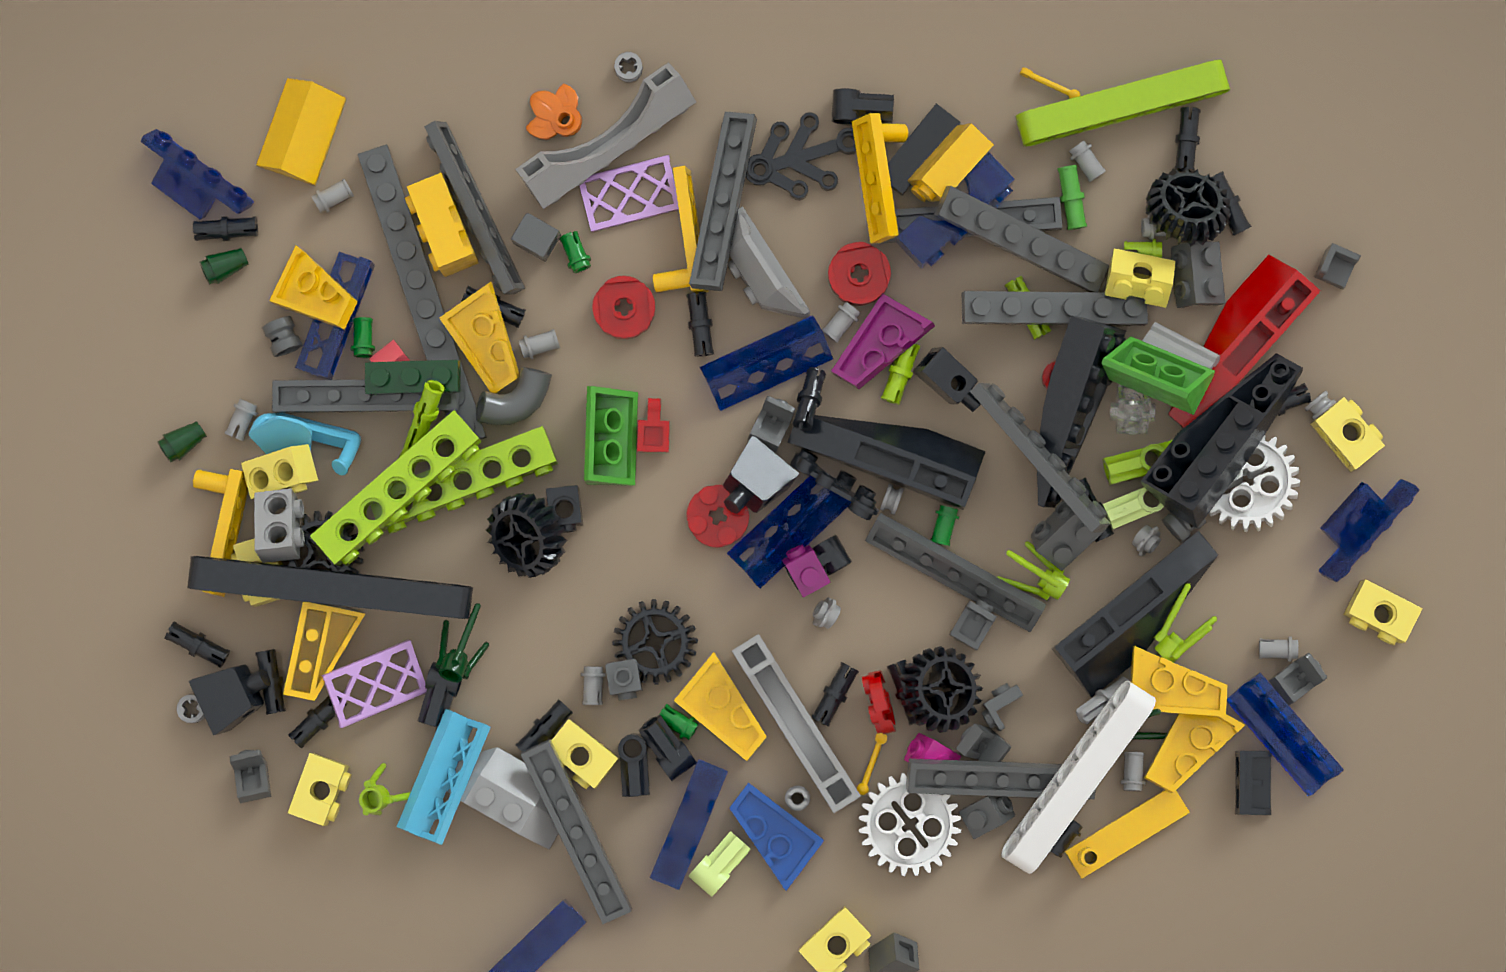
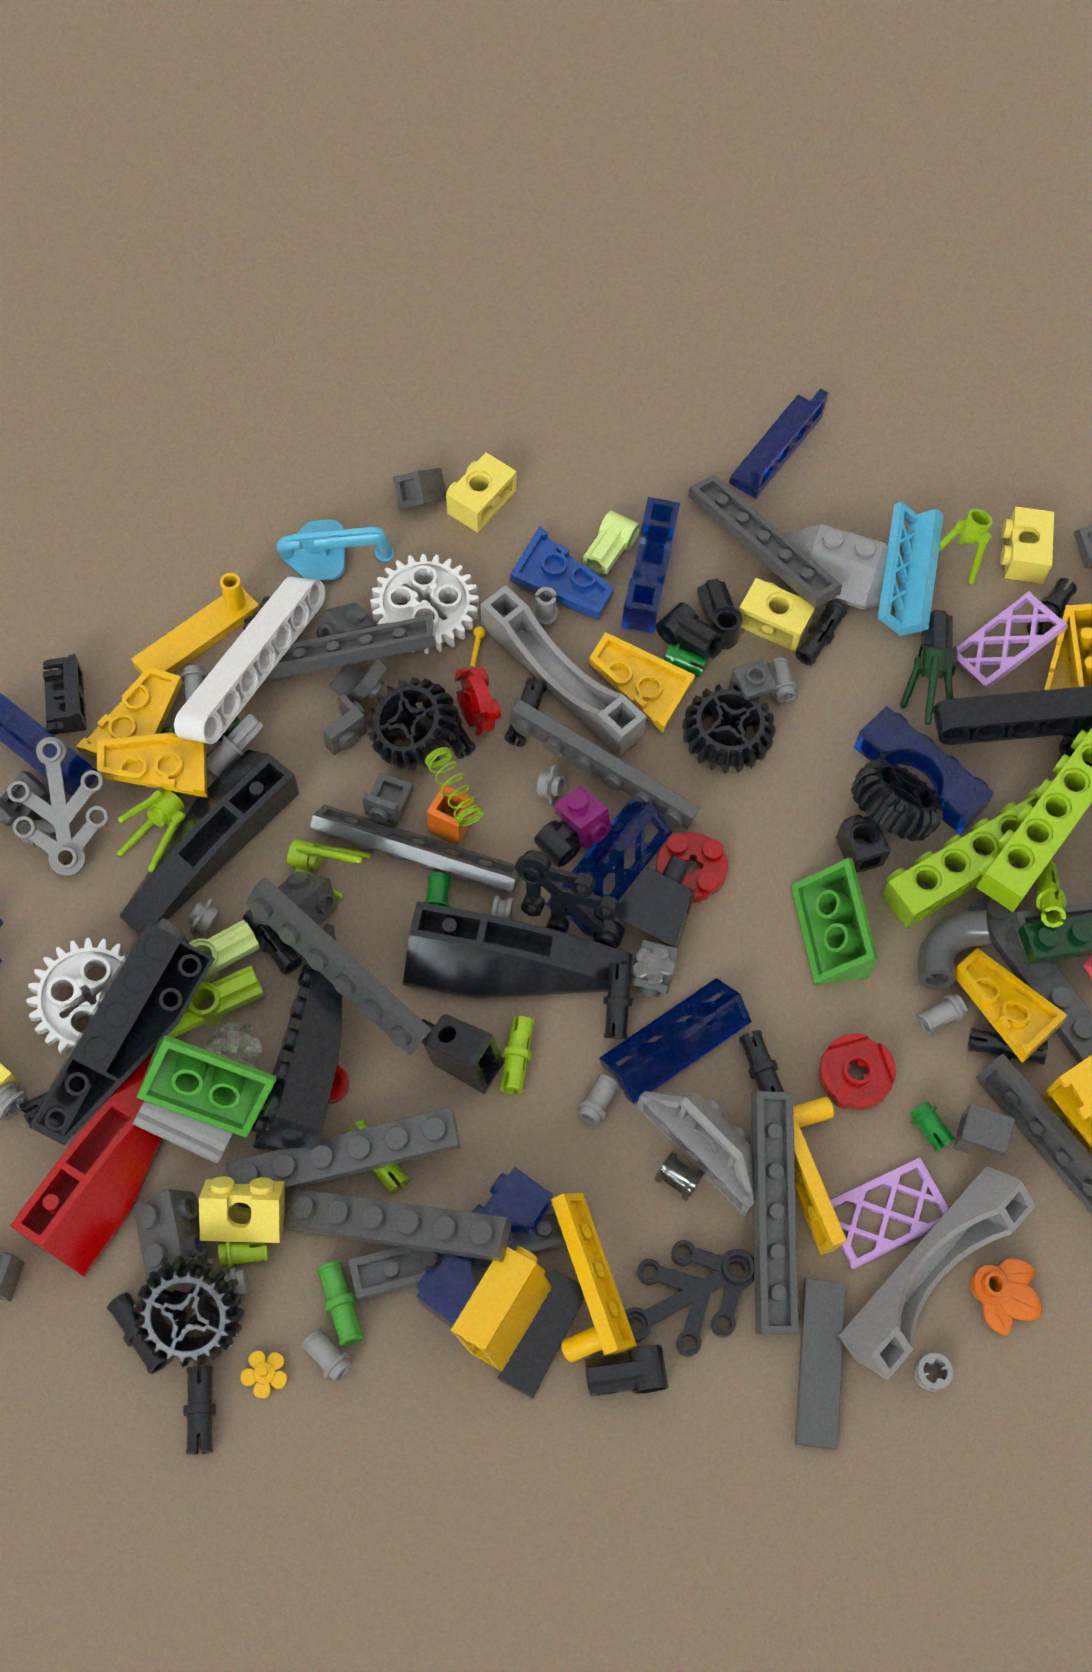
camera: 160 degrees right, 20 degrees down
(466, 537) = (896, 741): none -> clear blue arch
(653, 433) = (786, 938): red plate -> none
(712, 89) = (820, 1364): none -> dark grey tile
(773, 421) = (653, 965): none -> clear plant
(788, 626) = (612, 770): none -> dark grey plate
(789, 247) = (679, 1176): none -> clear smoke bush
(869, 259) = (597, 1141): red plate -> none
(880, 340) = (548, 1083): magenta wing -> none
(921, 593) = (441, 816): none -> orange brick
(926, 633) = (474, 818): none -> lime piece
(927, 748) = (412, 664): dark pink bracket -> none
(999, 903) = (320, 547): none -> medium azure piece
(1029, 74) = (356, 1445): yellow hinge -> none
(1122, 103) = (287, 1443): lime beam -> none
(1136, 158) = (264, 1373): none -> yellow plant
(1263, 653) = (60, 811): none -> light grey plant

